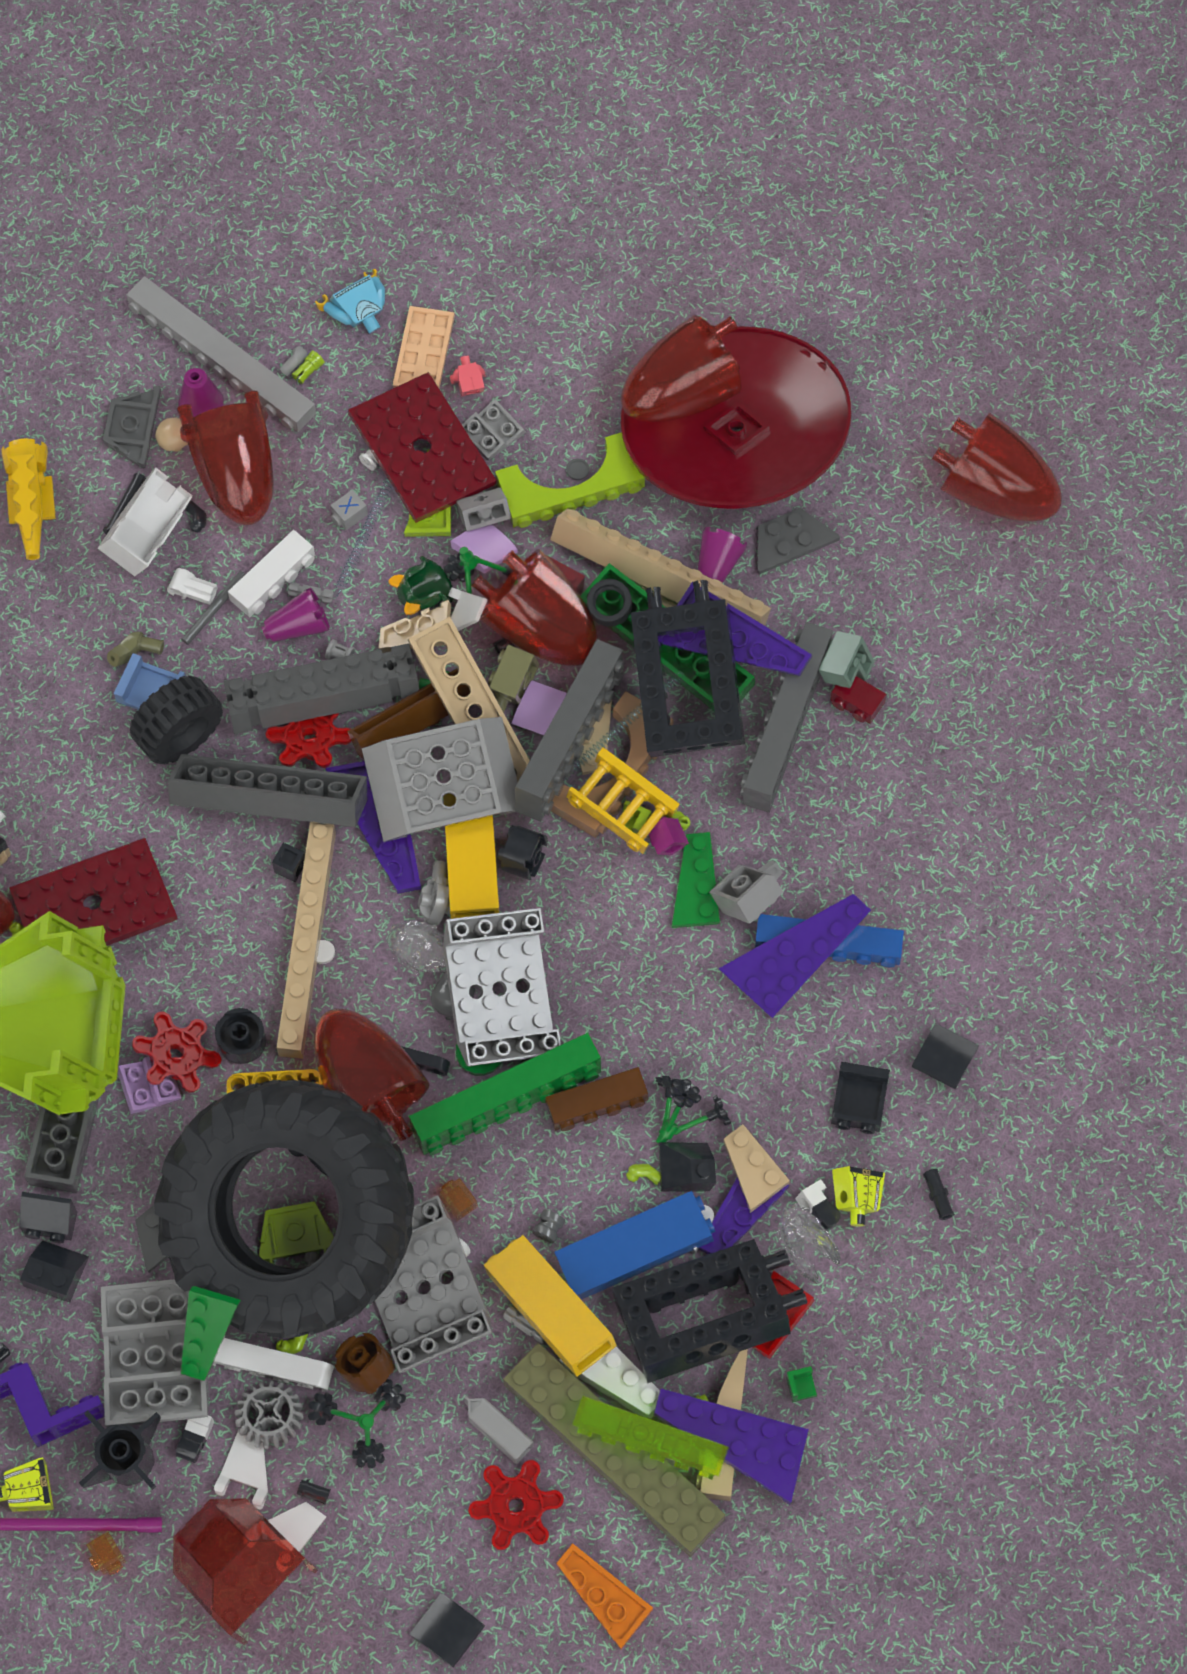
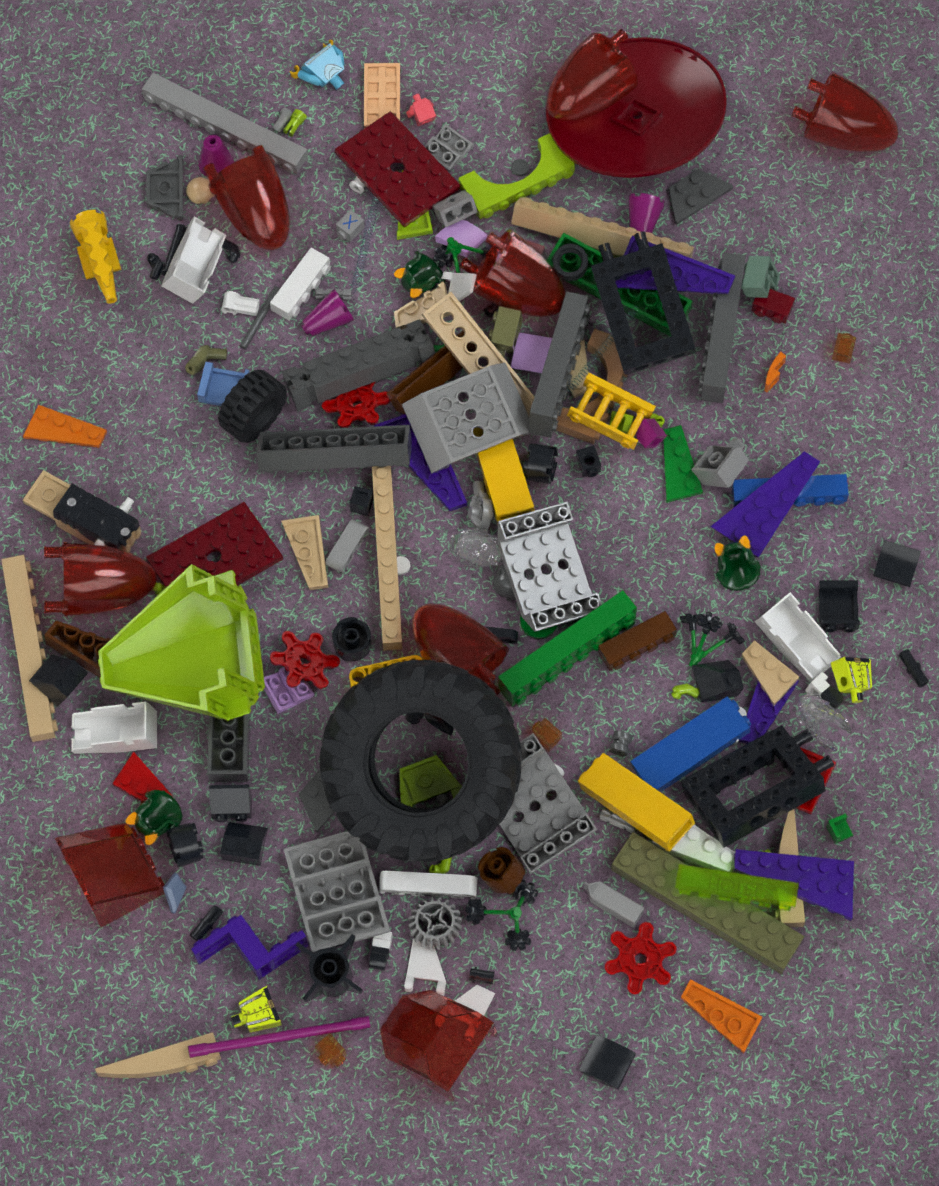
camera: 10 degrees left, 0 degrees up
(100, 520) = (156, 264): none -> black arm
(205, 1330) = (378, 861): green wing -> none
(212, 908) = (308, 548): none -> tan wing
(259, 915) = (346, 545): none -> light grey beam
(337, 650) = (363, 334): light grey bush -> none
(583, 850) = (588, 454): none -> black brick
(741, 1024) = (737, 565): none -> dark green hair
(799, 1130) = (798, 637): none -> white piece
(838, 788) = (773, 373): none -> orange slope
(936, 767) = (844, 348): none -> clear orange brick

